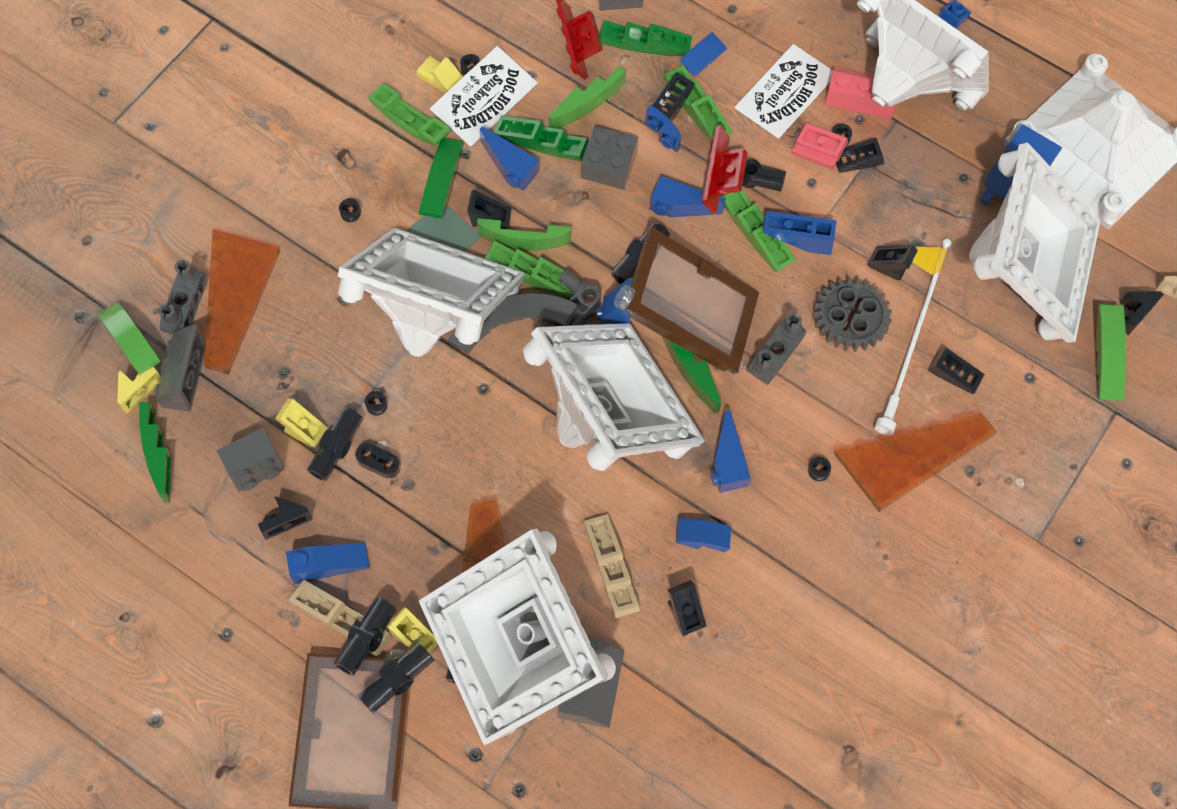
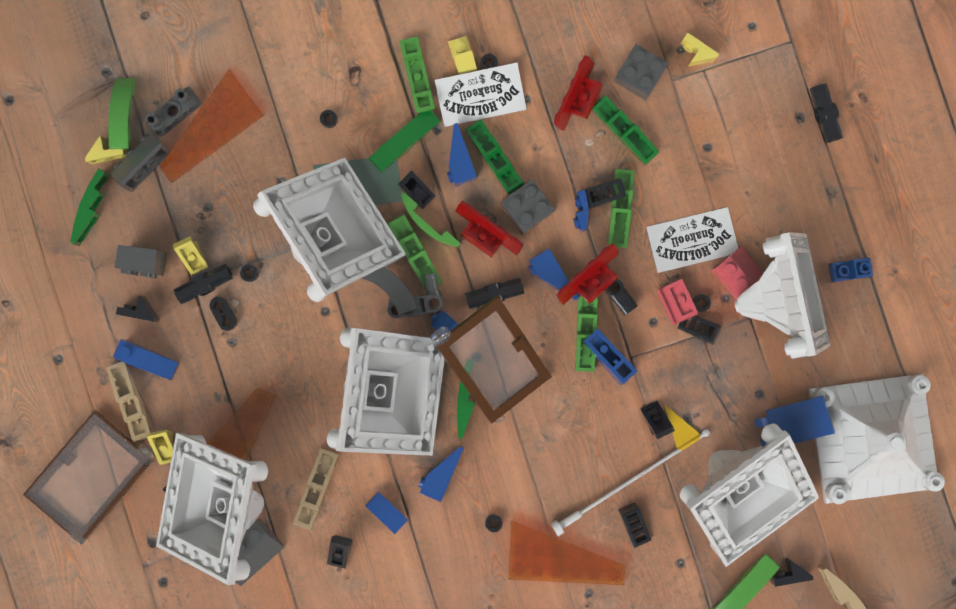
camera: 35 degrees right, 20 degrees up
(365, 636) = (132, 428): black piece -> none
(396, 677) = (132, 468): black piece -> none
(582, 102) = (541, 150): bright green slope -> none
(587, 205) = (485, 233): none -> red bracket
(703, 54) = (655, 172): blue slope -> none
(786, 338) = (514, 430): dark grey piece -> none
(873, 323) = (606, 455): dark grey gear -> none

